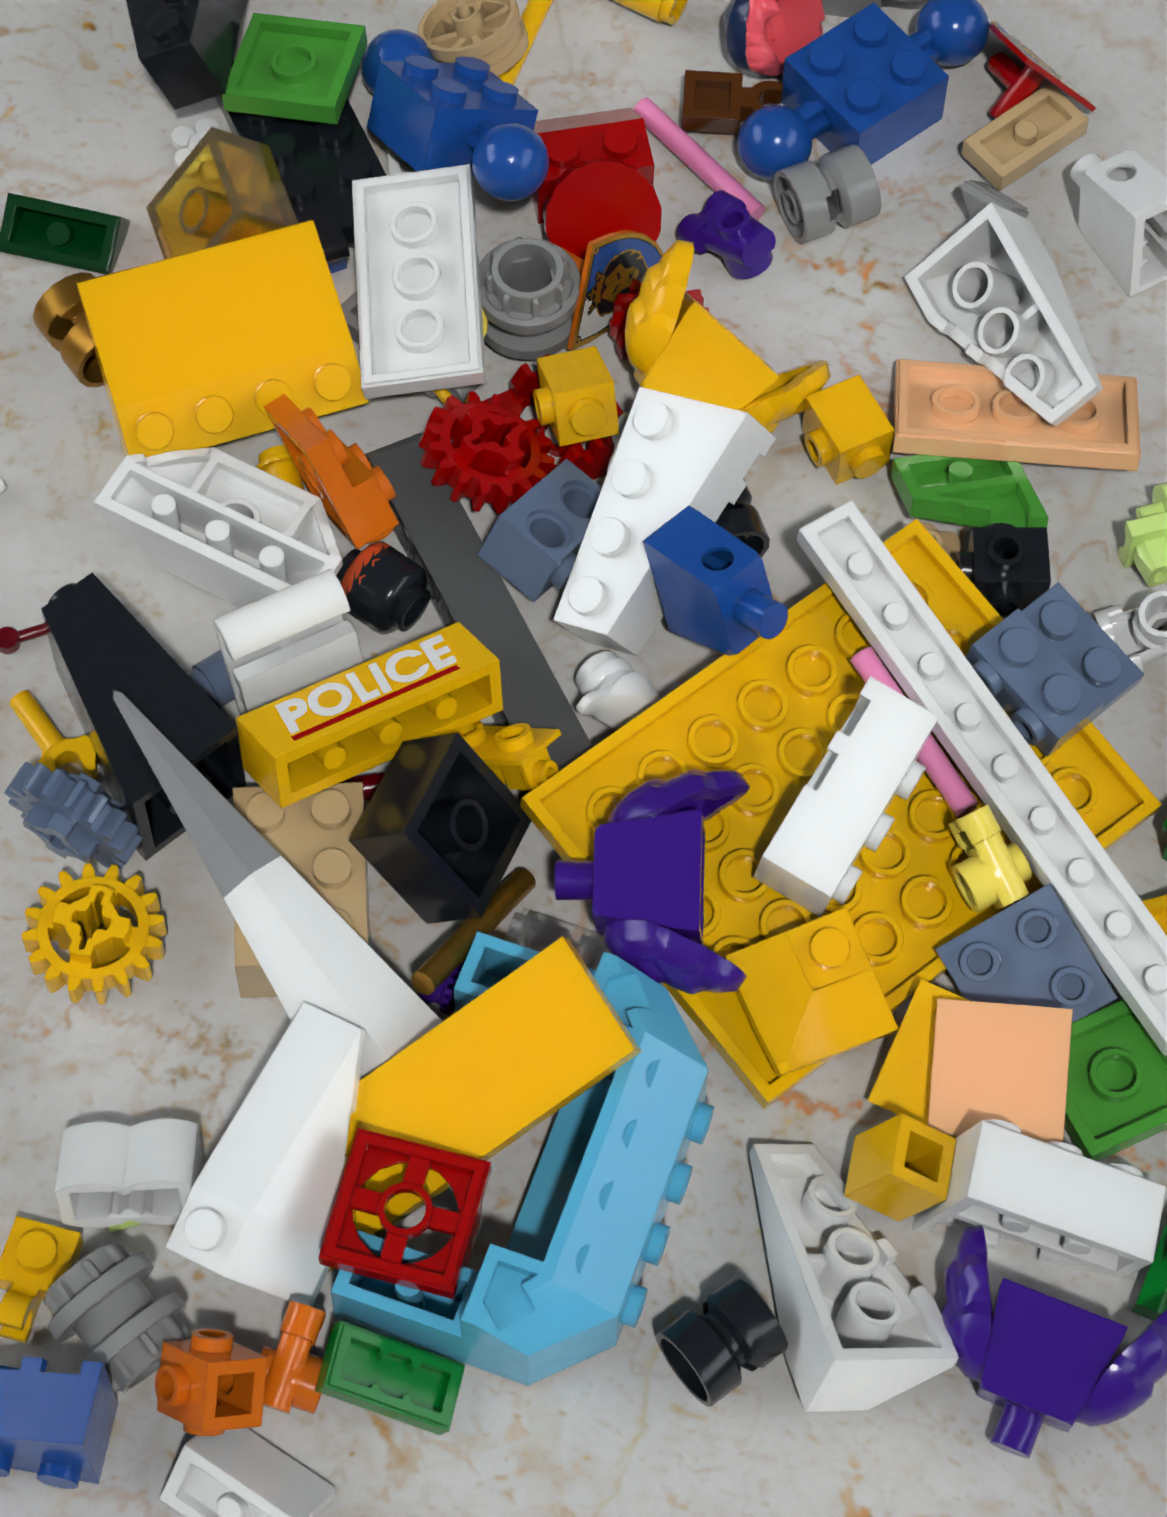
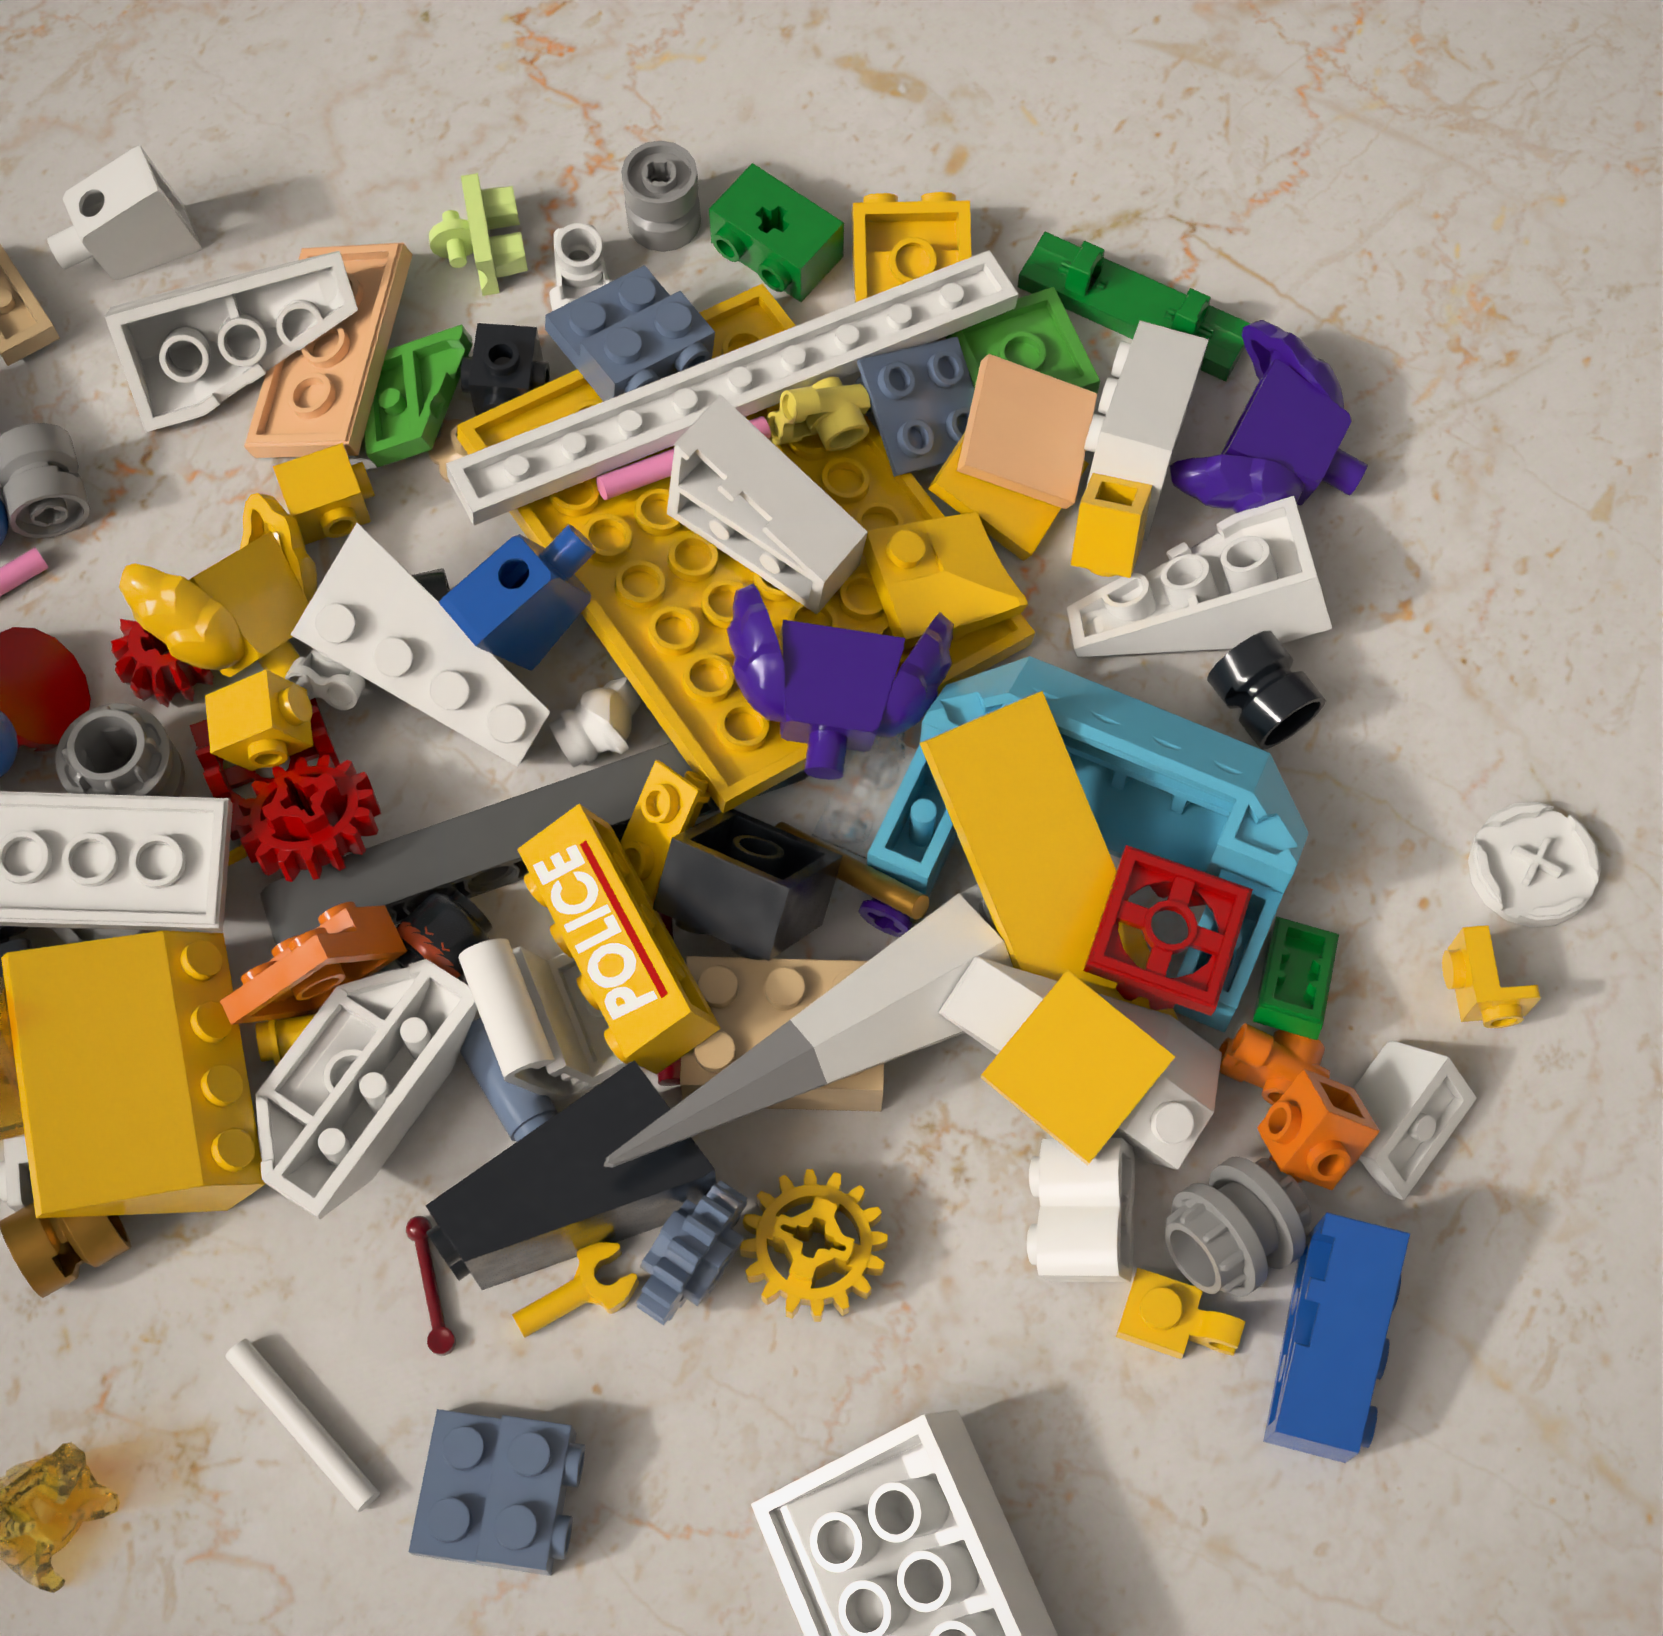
camera: 85 degrees left, 5 degrees up
(250, 1126) = (1077, 1067): none -> yellow tile
(543, 531) = (412, 763): sand blue brick -> none
(605, 272) = (90, 696): shield -> none
(732, 233) = (67, 576): dark purple plate -> none
(980, 194) = (82, 344): light grey slope -> none

